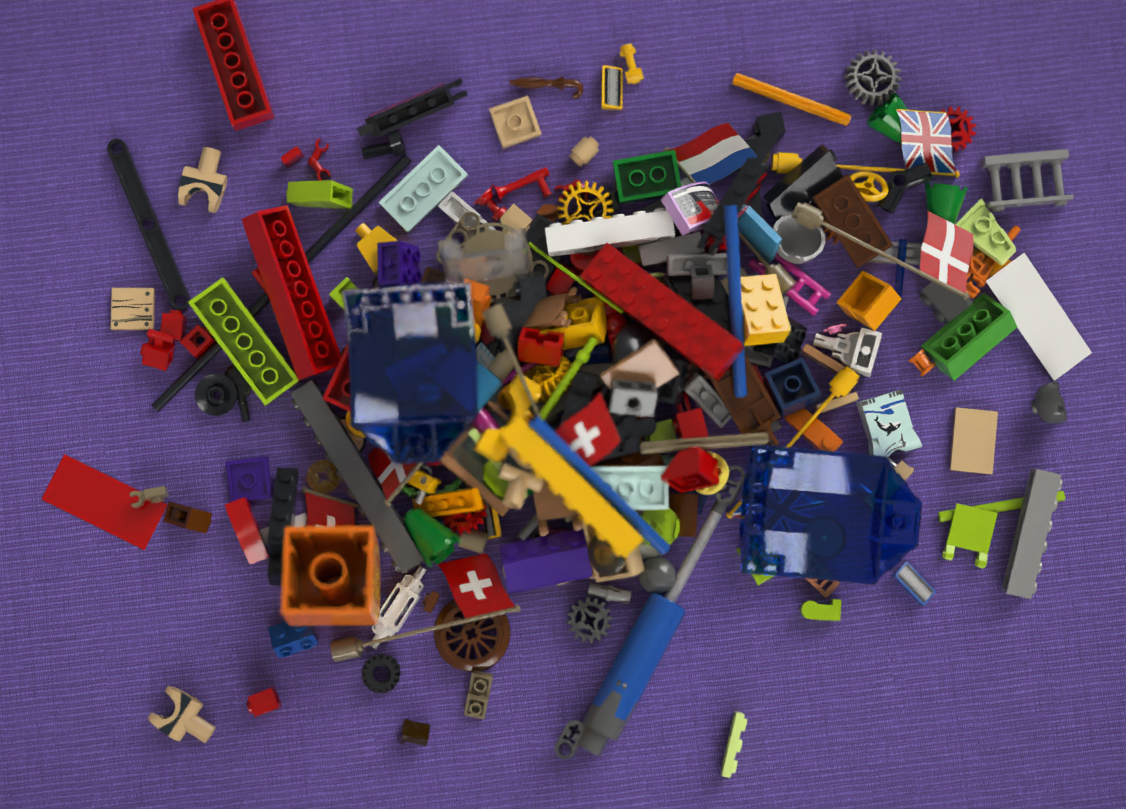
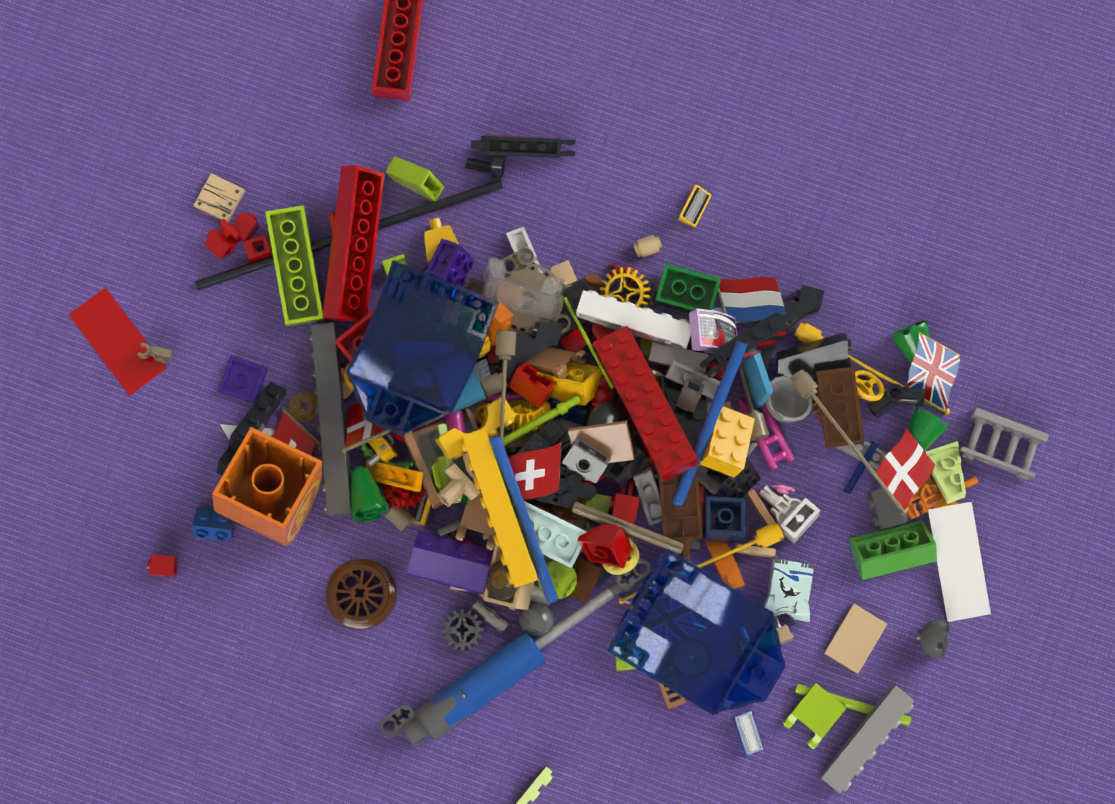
camera: 25 degrees right, 5 degrees down
(143, 211) = (267, 124): black beam -> none
(184, 718) = (91, 547): tan connector -> none
(187, 517) = (178, 386): reddish brown slope -> none
(204, 179) = (328, 122): tan connector -> none
(206, 390) = (244, 292): black dish -> none
(243, 390) = (271, 303): black piece -> none
(247, 530) = (220, 419): red slope -> none
(292, 156) = (408, 138): red tile -> none
(313, 160) = (425, 148): red arm -> none
(394, 673) = (280, 596): black tyre -> none
(409, 588) = (328, 532): white piece -> none
(414, 733) = (272, 652): dark brown tile -> none
(423, 189) = (501, 214): light aqua plate -> none
(430, 601) = (340, 550): reddish brown plate -> none
(475, 590) = (380, 558): flag -> none
(478, 694) = (340, 647): dark tan slope -> none
(486, 198) = (548, 246): red piece -> none
(515, 122) = (602, 196): tan tile -> none
(538, 176) = (599, 248): red piece -> none
(560, 83) = (635, 173): reddish brown piece -> none
(634, 74) = (719, 204): yellow bar -> none
(791, 99) = (839, 286): light orange axle -> none
(813, 610) = (654, 715): lime leg -> none
(865, 78) = (908, 296): light grey gear -> none
(868, 300) = (822, 478): light orange piece -> none
(922, 362) = (843, 552): orange bush -> none
(960, 133) = (964, 380): red gear -> none

